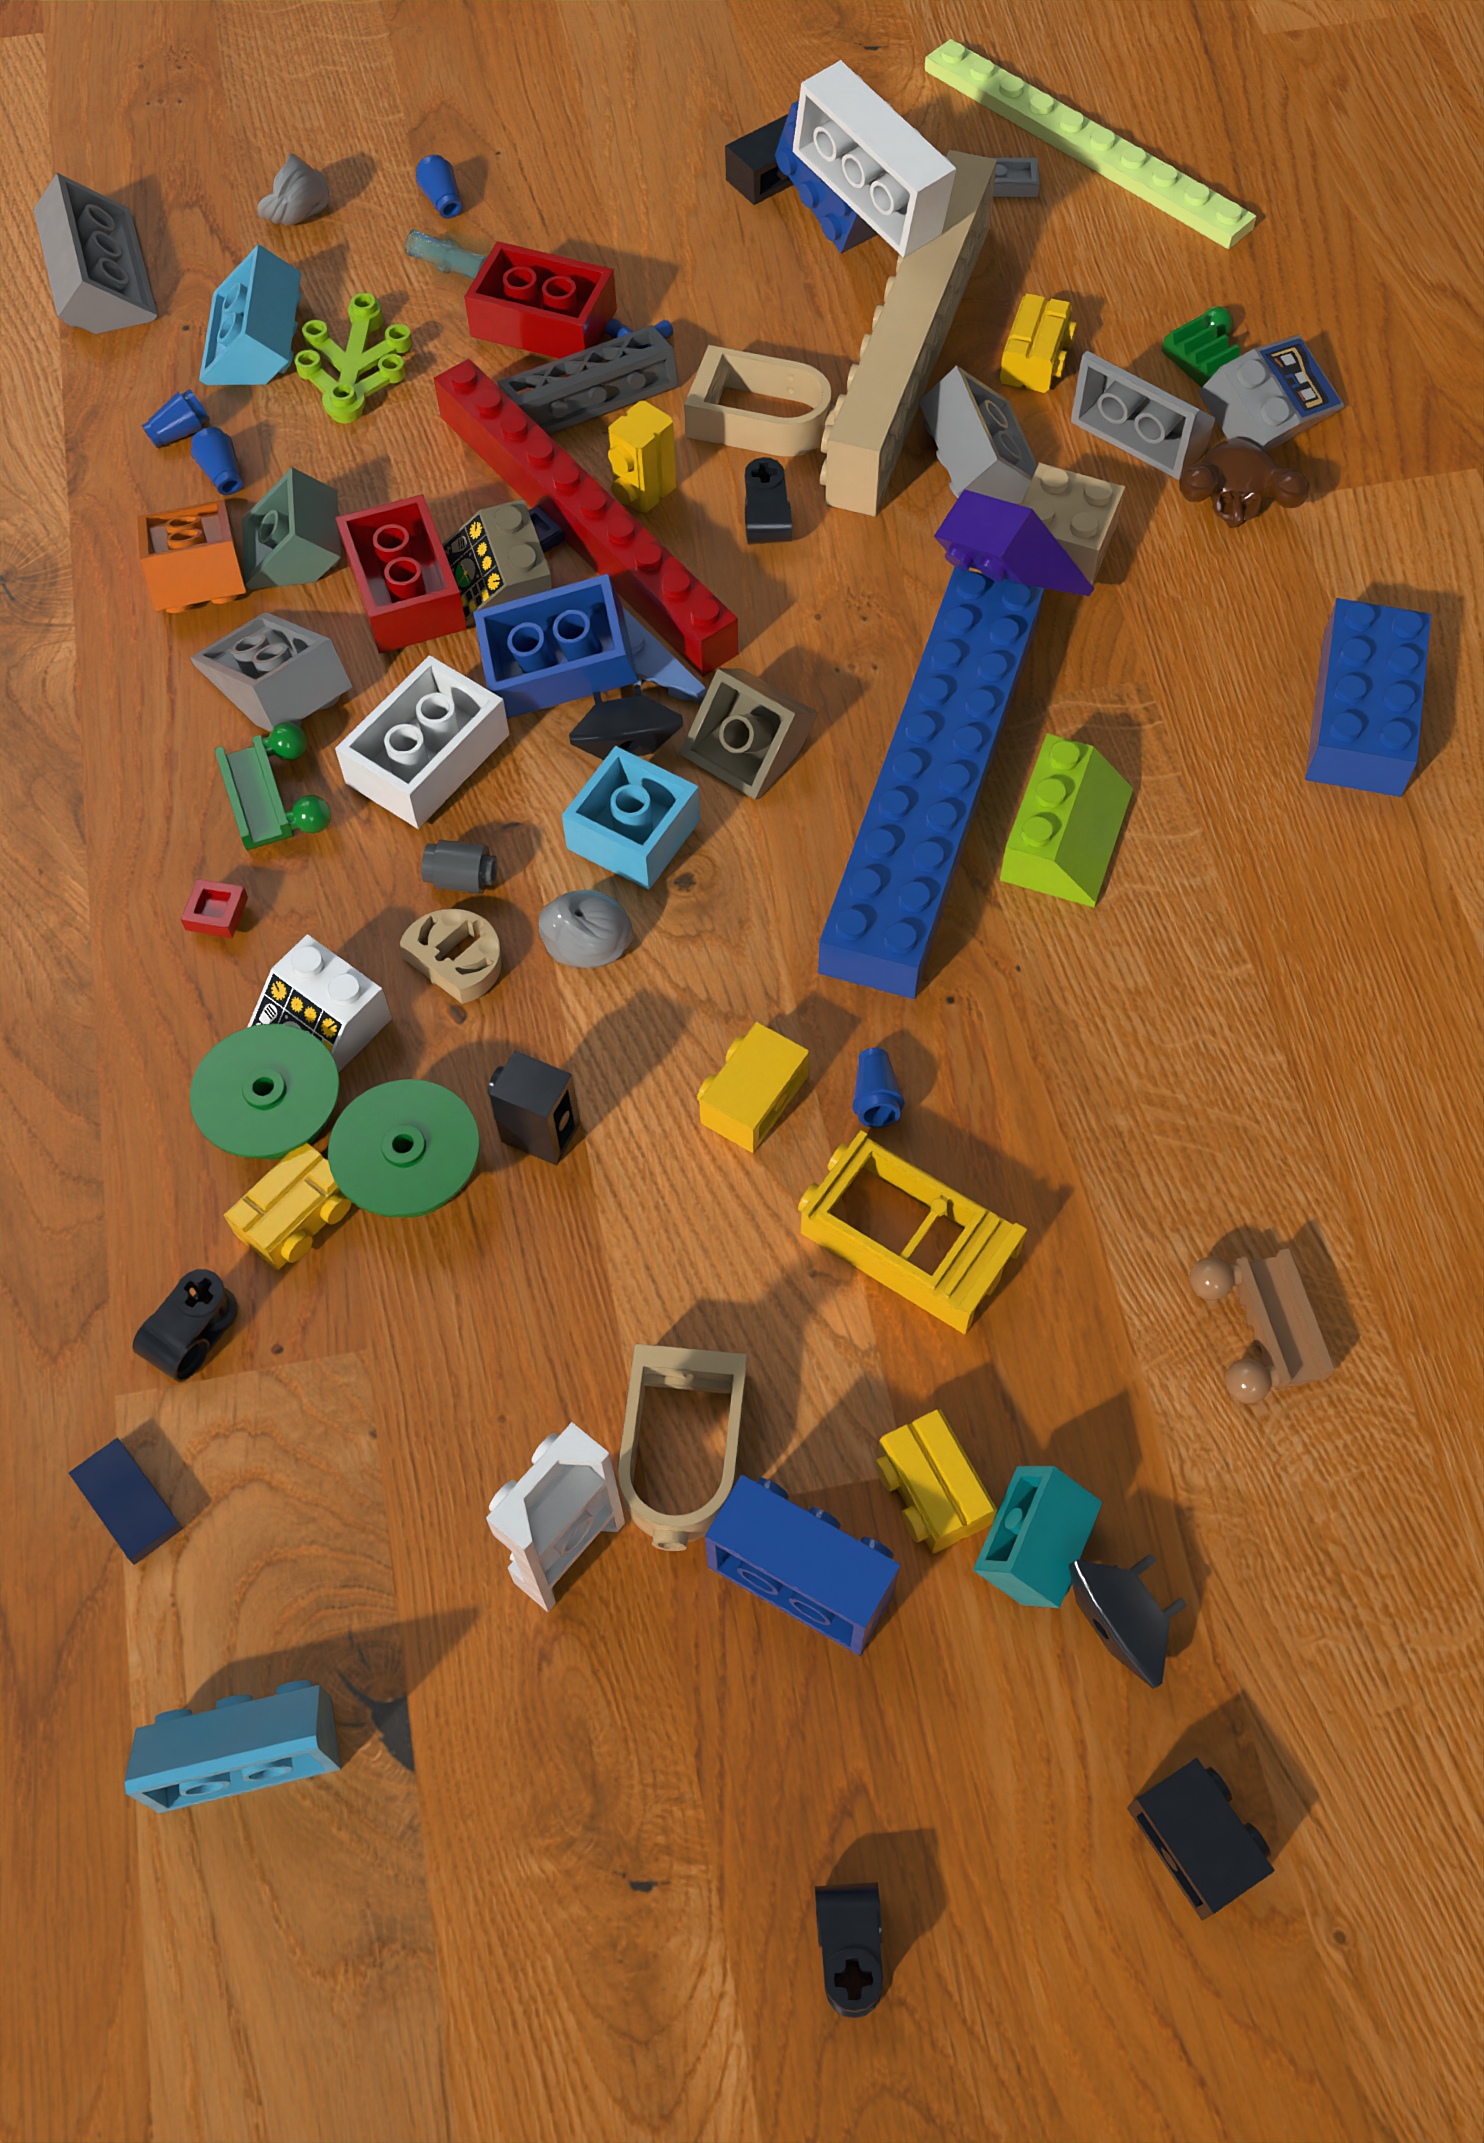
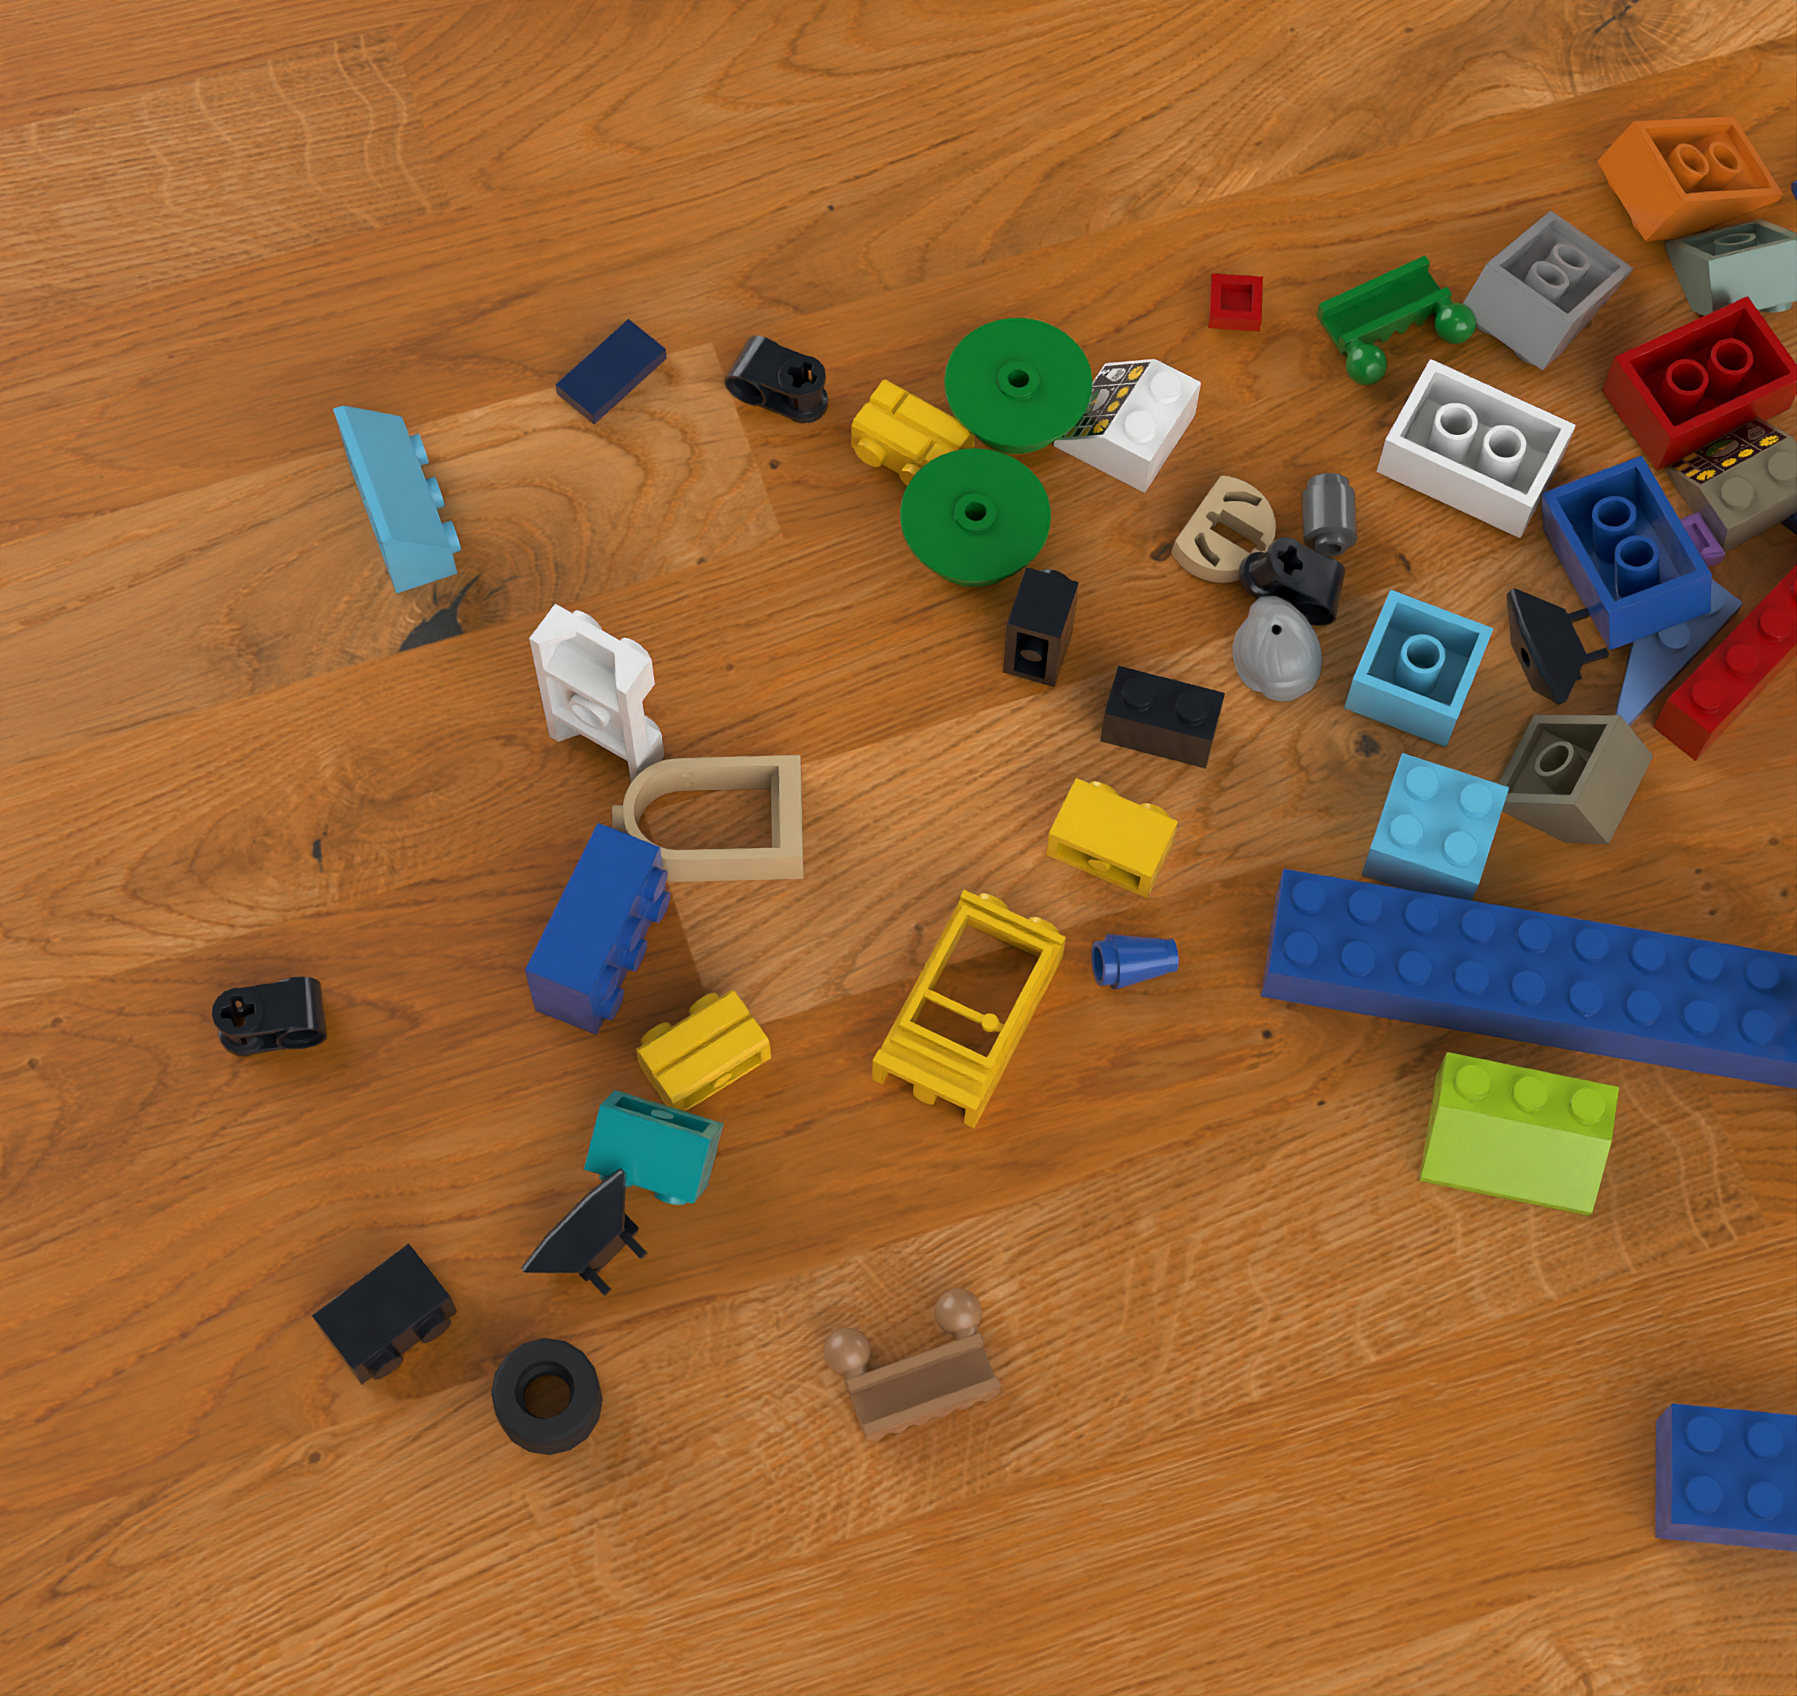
camera: 80 degrees right, 5 degrees up
(520, 898) = (1297, 575): none -> black piece
(640, 1026) = (1162, 717): none -> black brick
(786, 834) = (1435, 829): none -> medium azure brick
(1320, 1652) = (537, 1360): none -> black tyre

